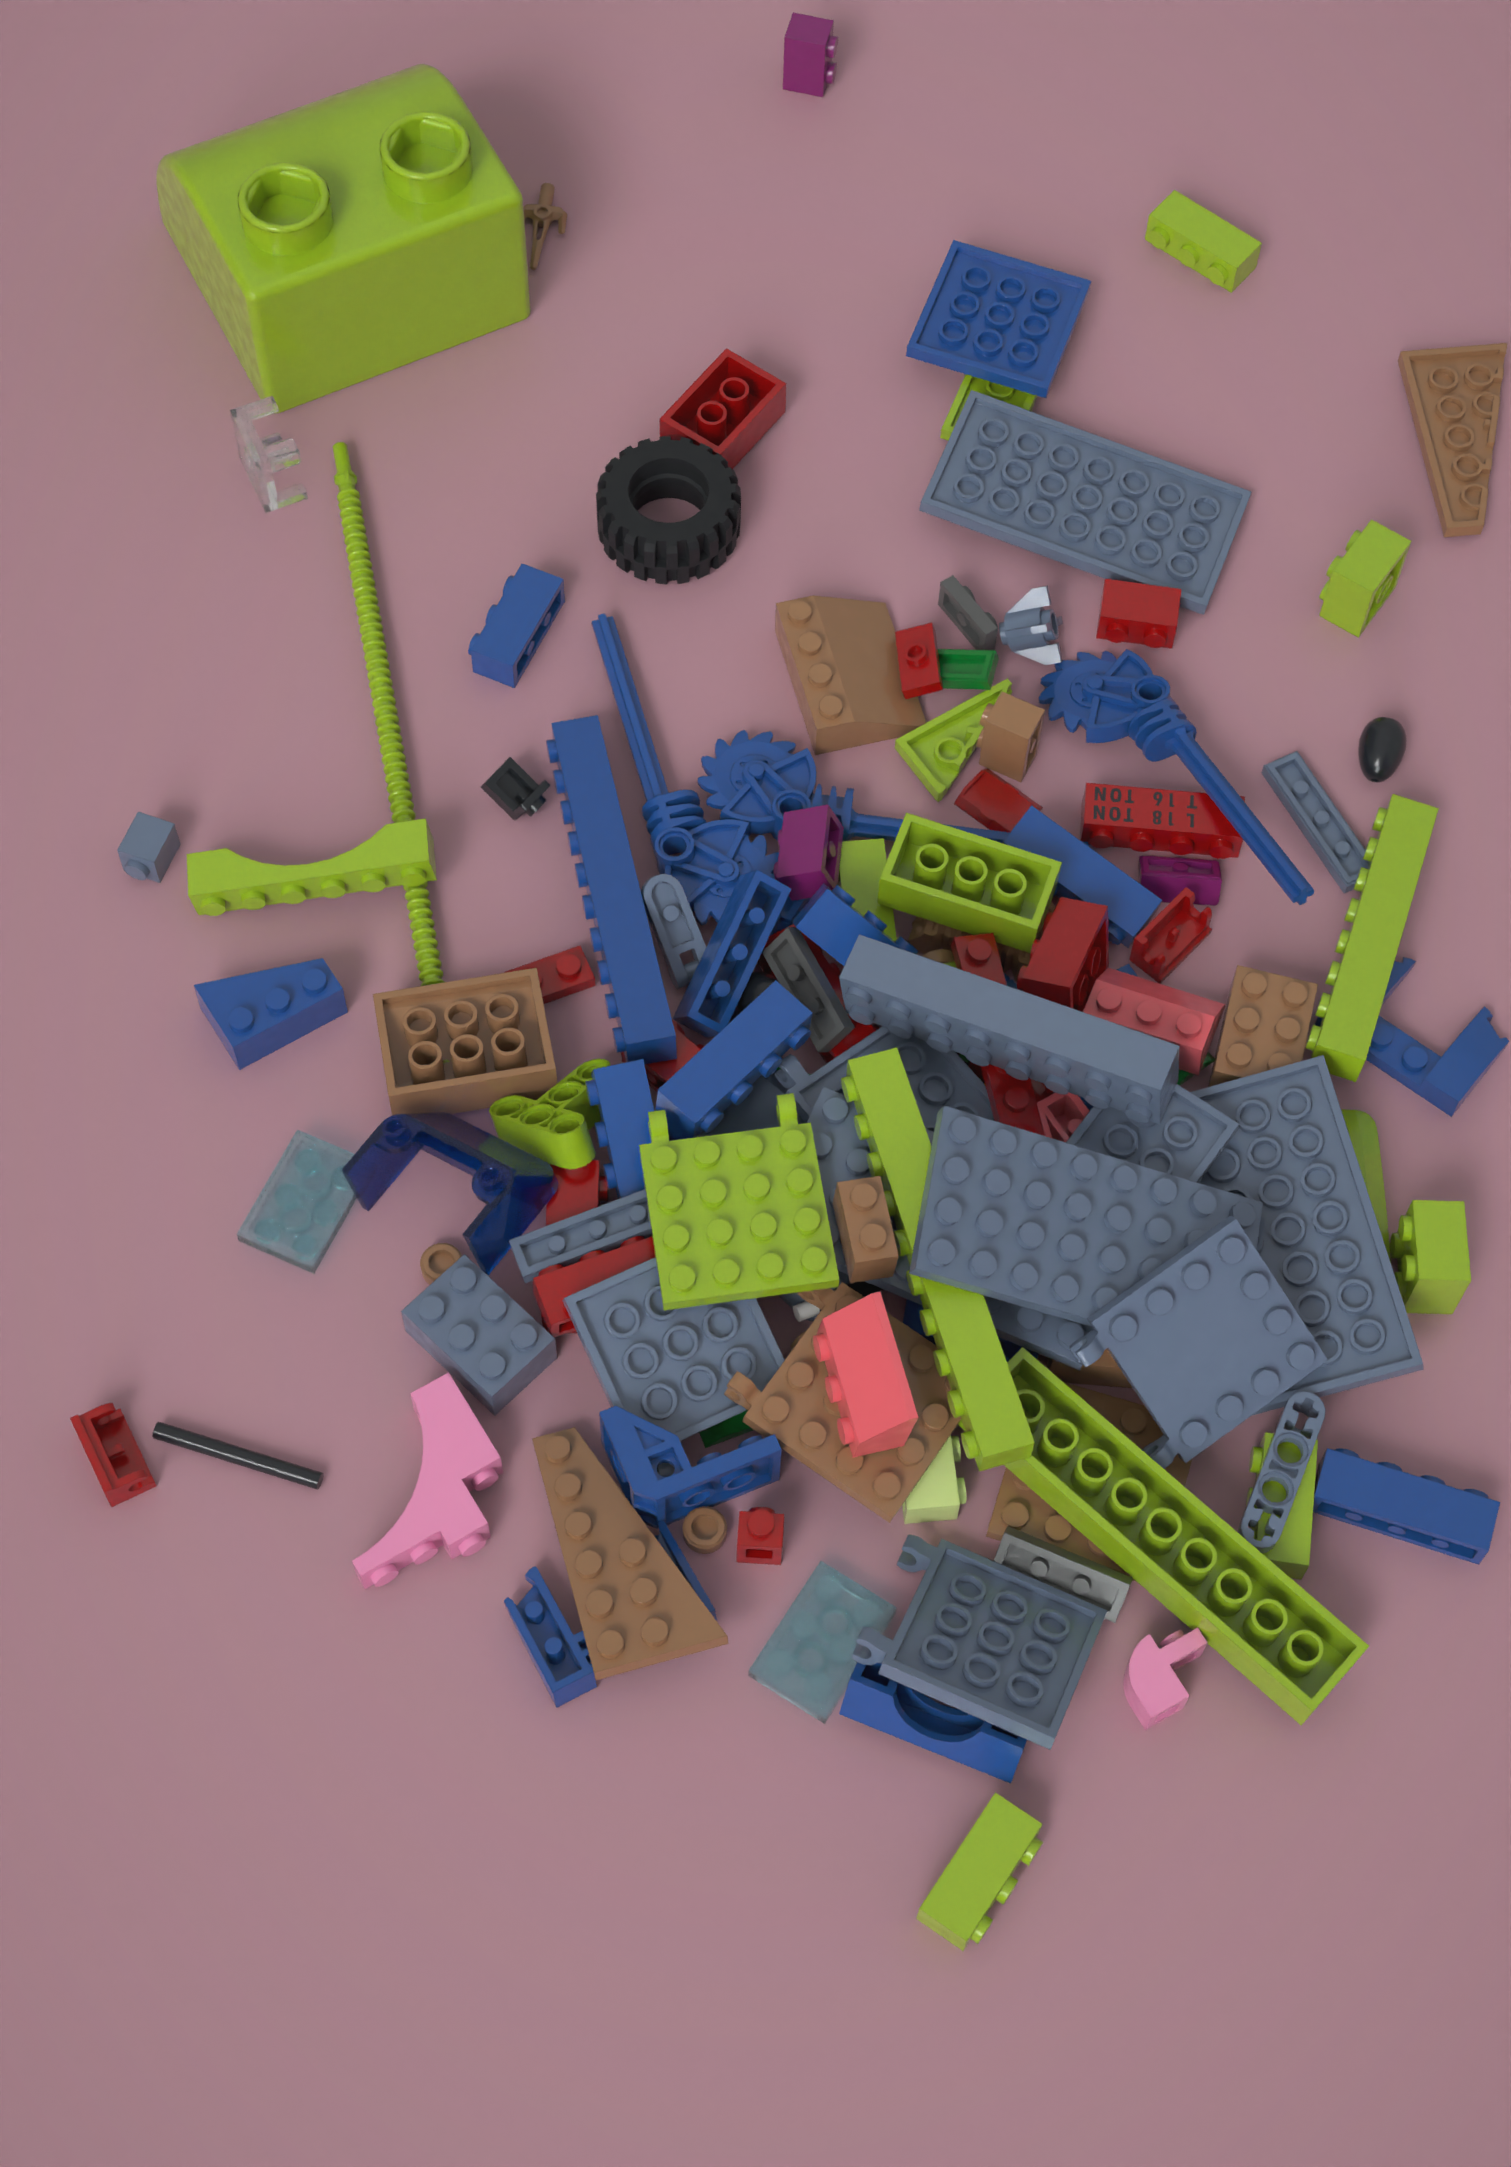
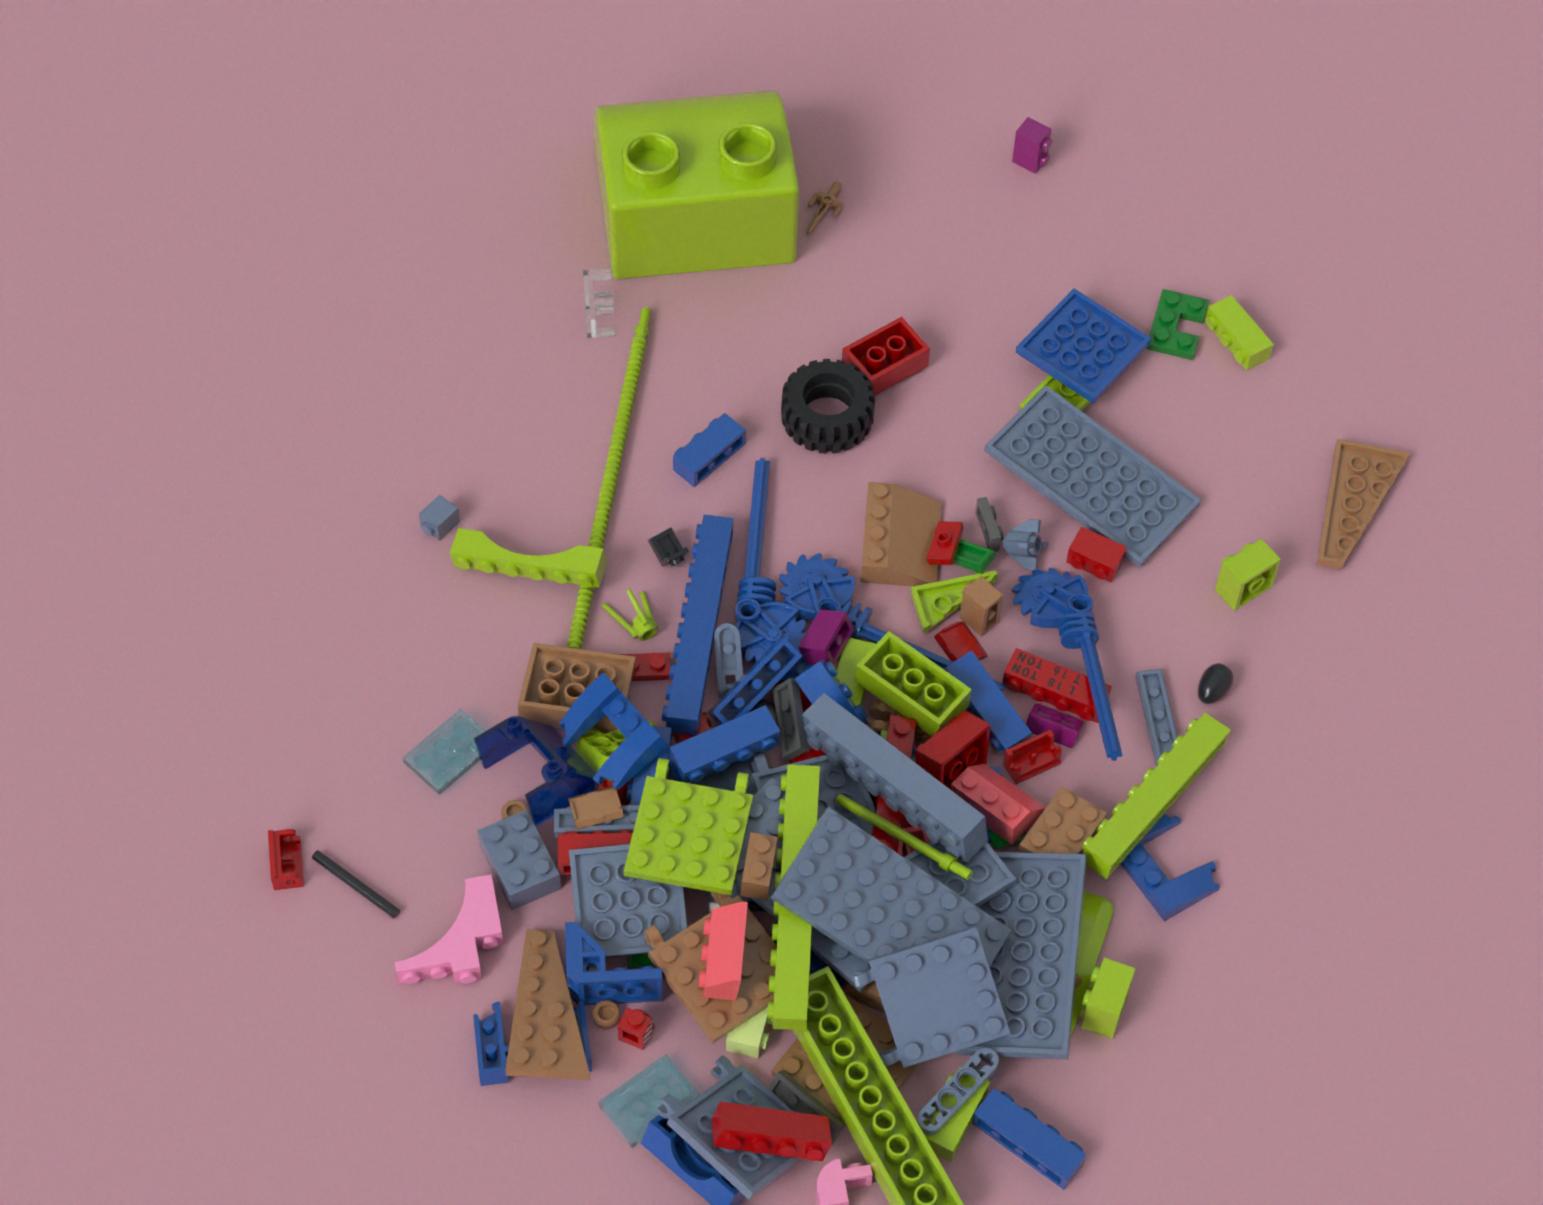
camera: 20 degrees right, 5 degrees down
(270, 1007) = (473, 633): blue wedge -> none
(524, 915) = (643, 625): none -> lime plant
(573, 1217) = (595, 807): none -> medium nougat piece
(609, 1090) = (641, 740): none -> blue wedge
(1038, 1631) = (771, 1131): none -> red brick
(1092, 237) = (1163, 331): none -> green plate
(1133, 1131) = (946, 861): none -> lime bar

